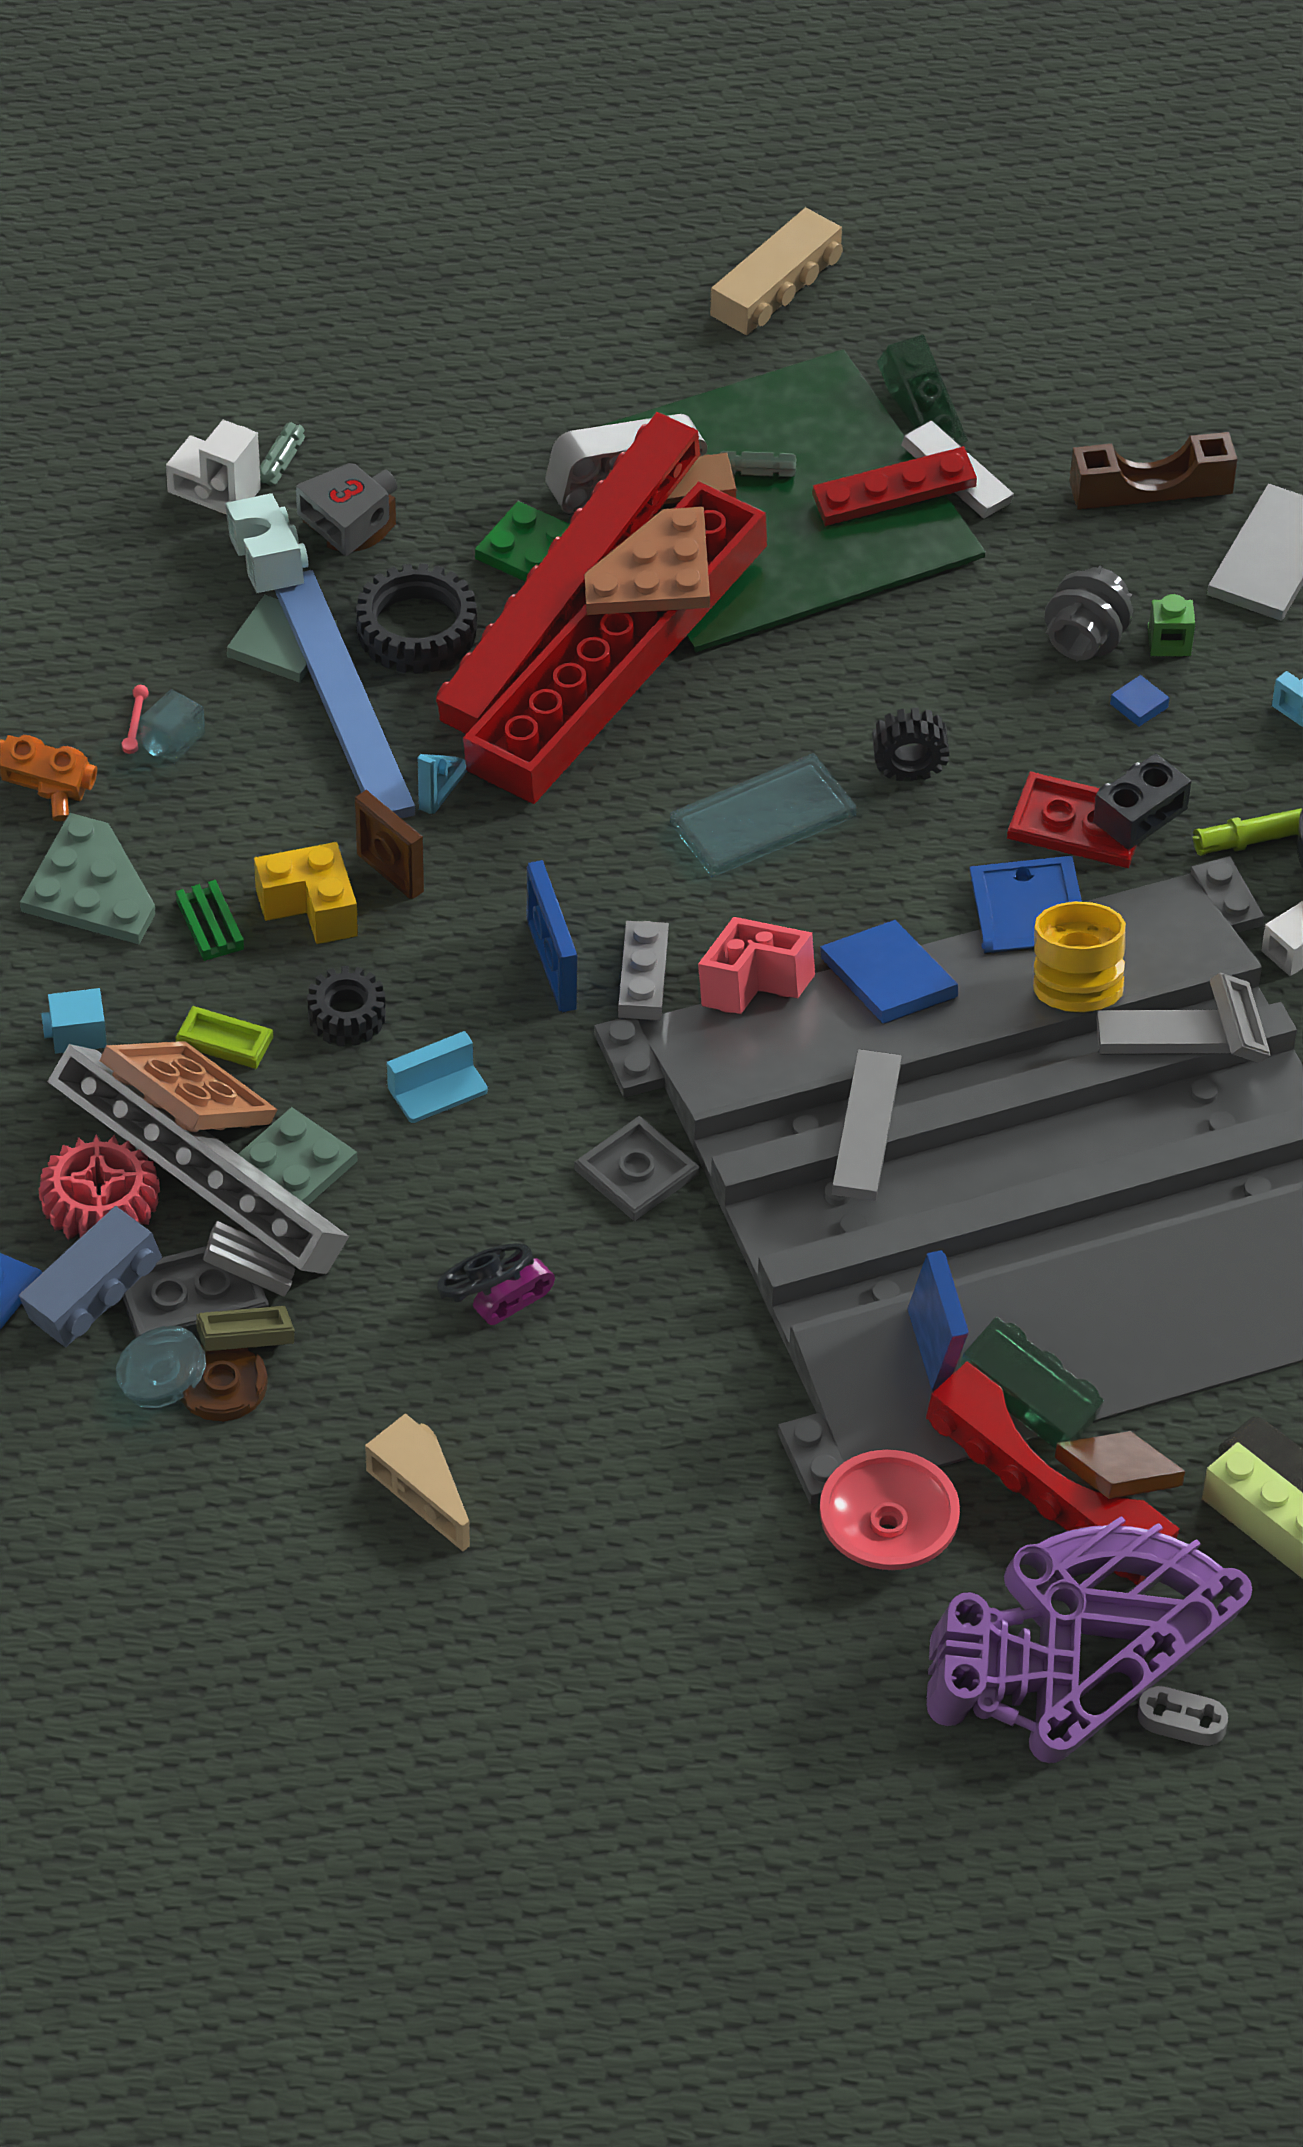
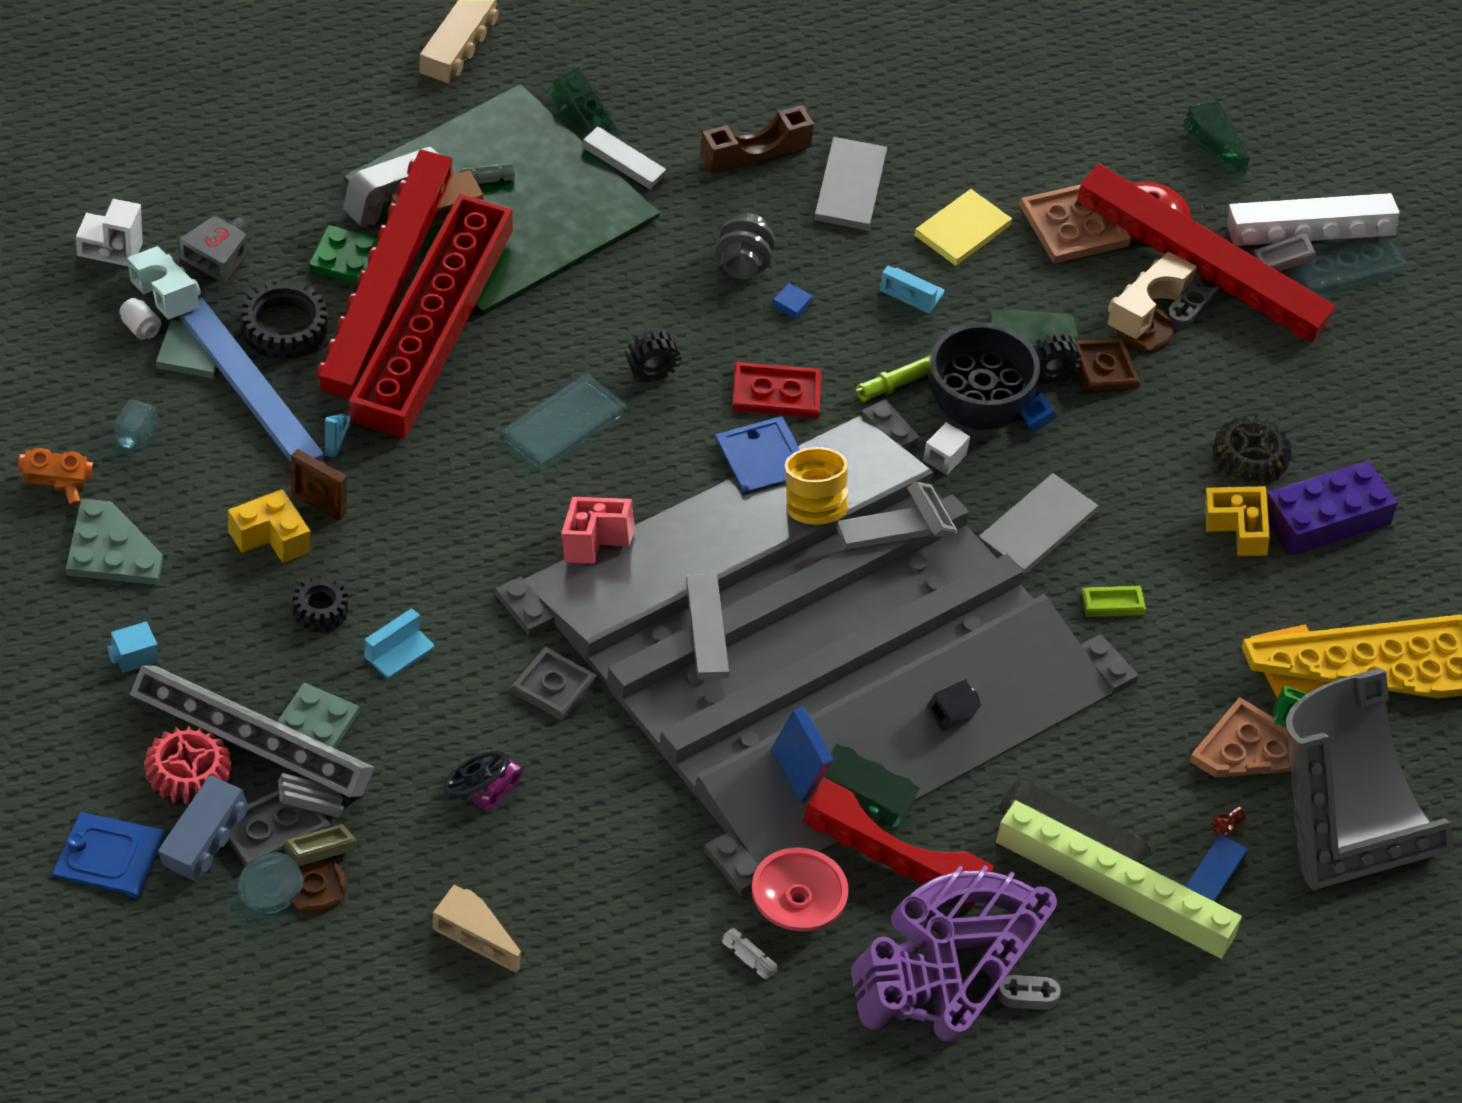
camera: 20 degrees left, 0 degrees up
(130, 744) = (106, 442): coral hinge -> none
(187, 1086) = (230, 680): nougat plate -> none
(200, 896) = (181, 549): green tile -> none
(222, 587) = (140, 318): none -> white brick
(225, 1037) = (239, 640): lime tile -> none
(281, 453) = (151, 215): sand green axle -> none
(551, 937) = (451, 531): blue tile -> none
(643, 970) = (517, 544): light grey plate -> none
(654, 568) = (448, 259): nougat plate -> none
(796, 1586) = (749, 953): none -> light grey axle
(889, 971) = (684, 516): blue tile -> none
(894, 486) = (586, 176): red plate -> none
(1119, 1464) = (941, 829): tile -> none
(1141, 801) = (818, 370): black brick -> none
(1171, 616) = (800, 239): bright green brick -> none
(1191, 1294) = (954, 704): none -> black brick

